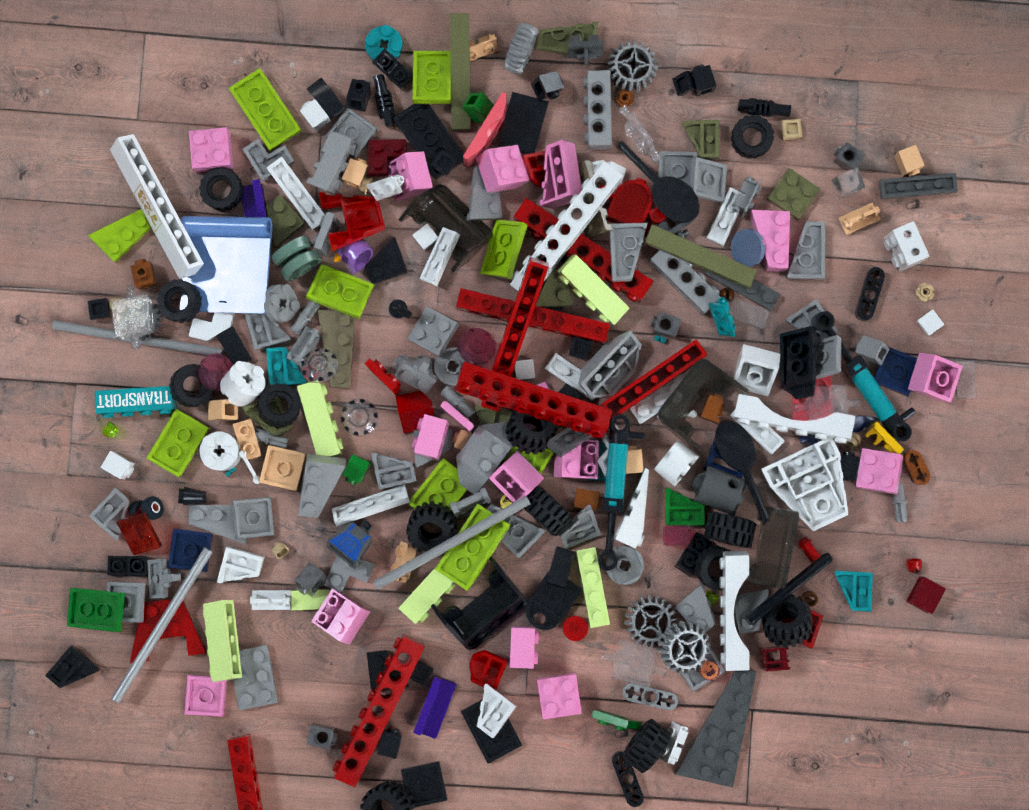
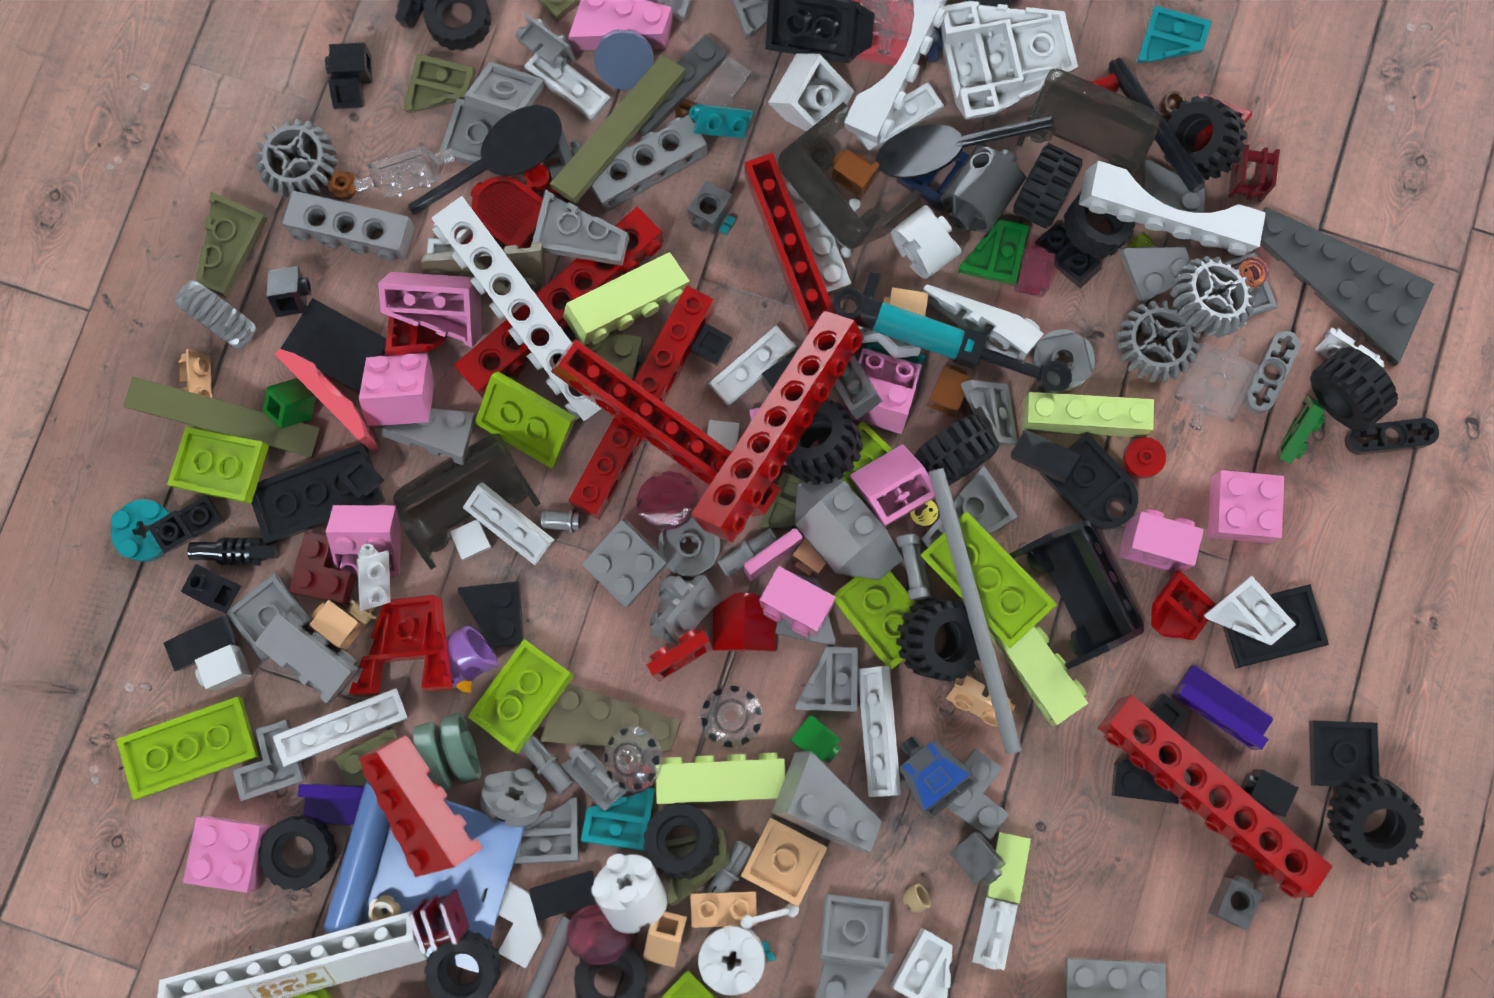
camera: 75 degrees left, 5 degrees down
(199, 273) = (427, 926): none -> dark red piece
(205, 247) = (377, 905): none -> tan plate
(259, 250) = (416, 808): none -> wedge
(328, 224) = (430, 703): light grey plate -> none
(340, 616) = (1048, 824): bright pink slope -> none
(399, 309) = (575, 607): black piece -> none
(449, 286) = (561, 520): none -> light grey pin
(585, 49) = (247, 219): dark grey hips -> none
(611, 366) = (751, 301): light grey wedge -> none

